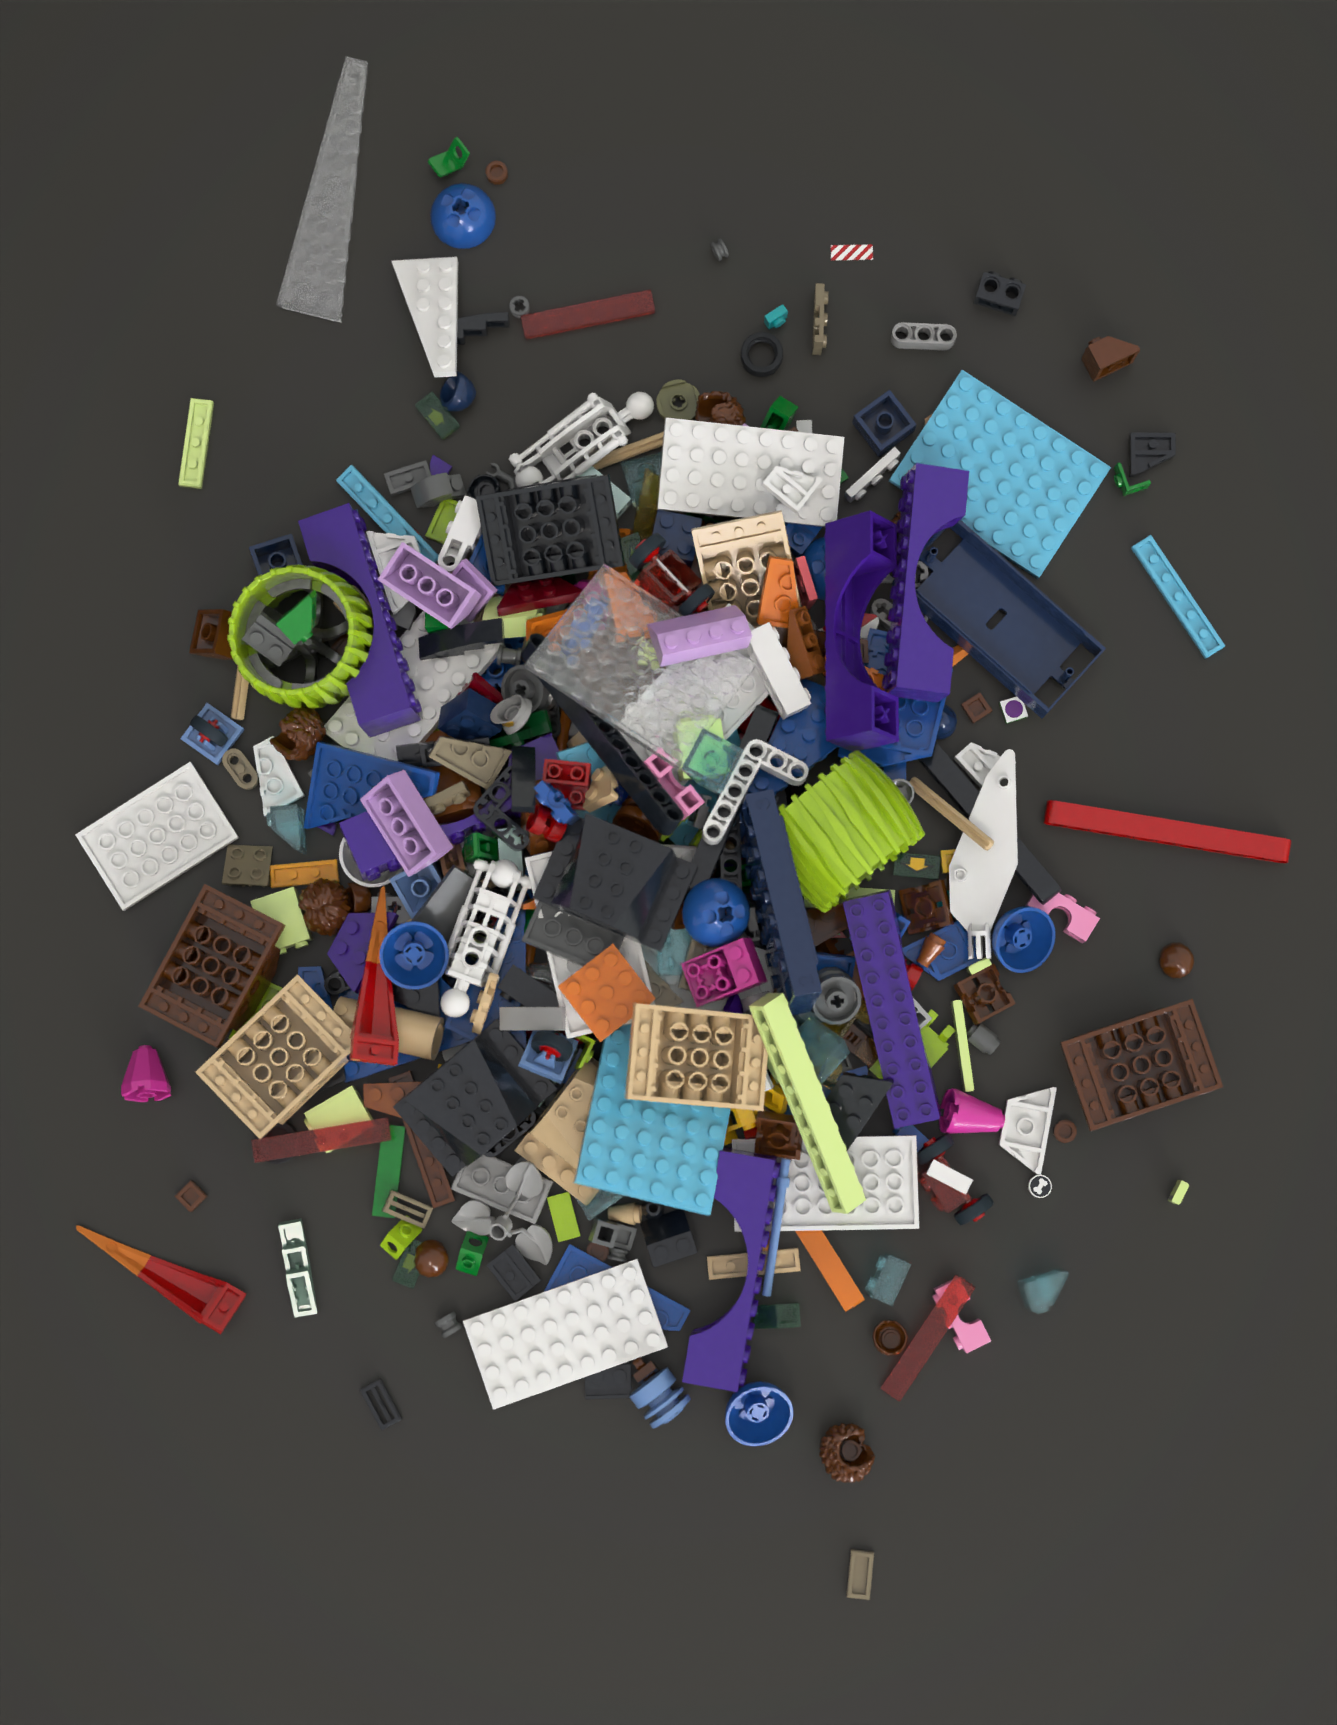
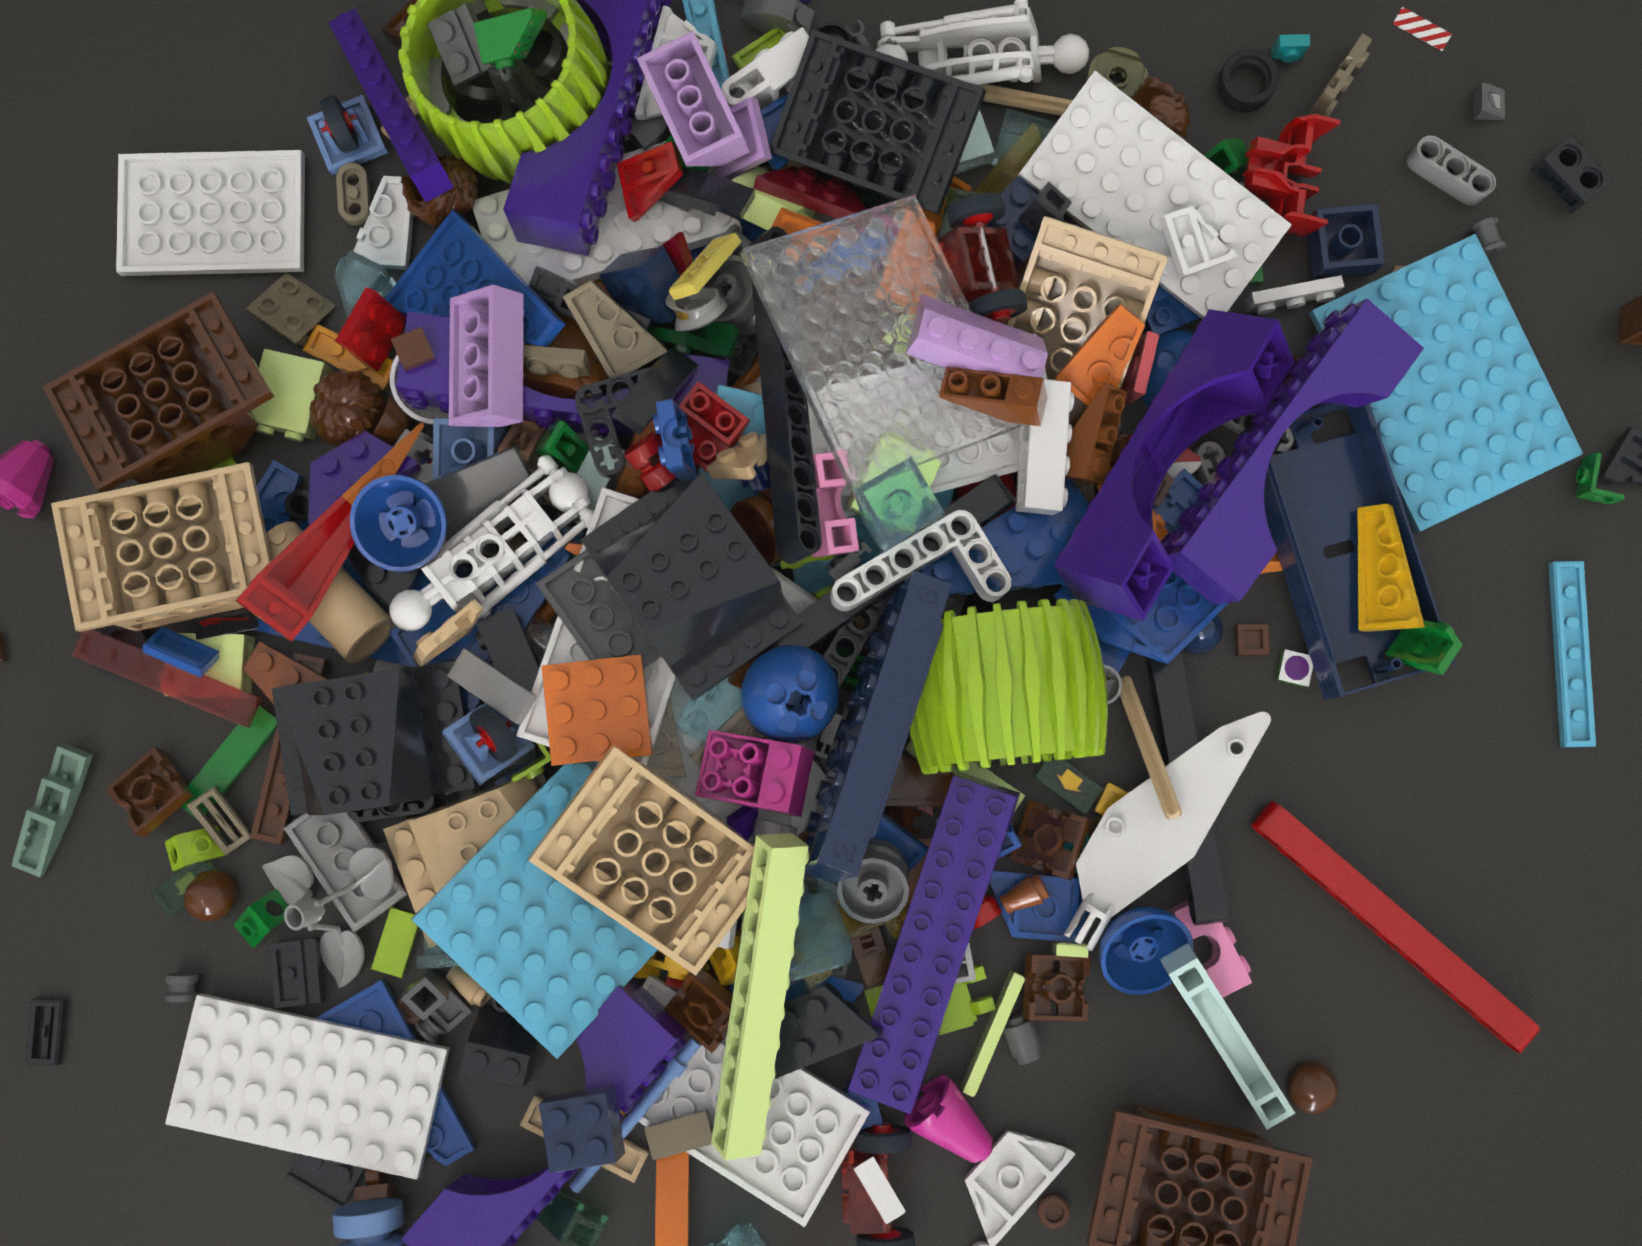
camera: 25 degrees right, 0 degrees up
(237, 700) = (391, 106): none -> dark purple brick
(313, 848) = (370, 329): none -> red plate
(322, 1118) = (181, 651): none -> blue plate
(335, 1085) = (225, 624): none -> black sticker
(350, 1222) = (144, 793): none -> reddish brown brick
(358, 844) = (413, 349): none -> reddish brown tile
(429, 649) = (648, 177): none -> red wing
(501, 684) = (704, 266): none -> light yellow tile
(687, 519) = (1048, 203): none -> black bracket
(729, 658) = (996, 394): none -> dark orange slope
(751, 1245) = (582, 1129): none -> dark blue brick
(809, 408) = (1271, 161): none -> red piece
(810, 1221) = (679, 1134): none -> dark tan tile
(922, 276) = (1488, 102): none -> dark grey slope
(971, 364) = (1489, 235): none -> dark grey bush
(976, 762) = (1214, 705): white wing -> none
(1034, 624) = (1384, 577): none -> yellow wing
(1080, 649) = (1426, 647): none -> green bracket
(1102, 959) = (1227, 1036): none -> light aqua arch

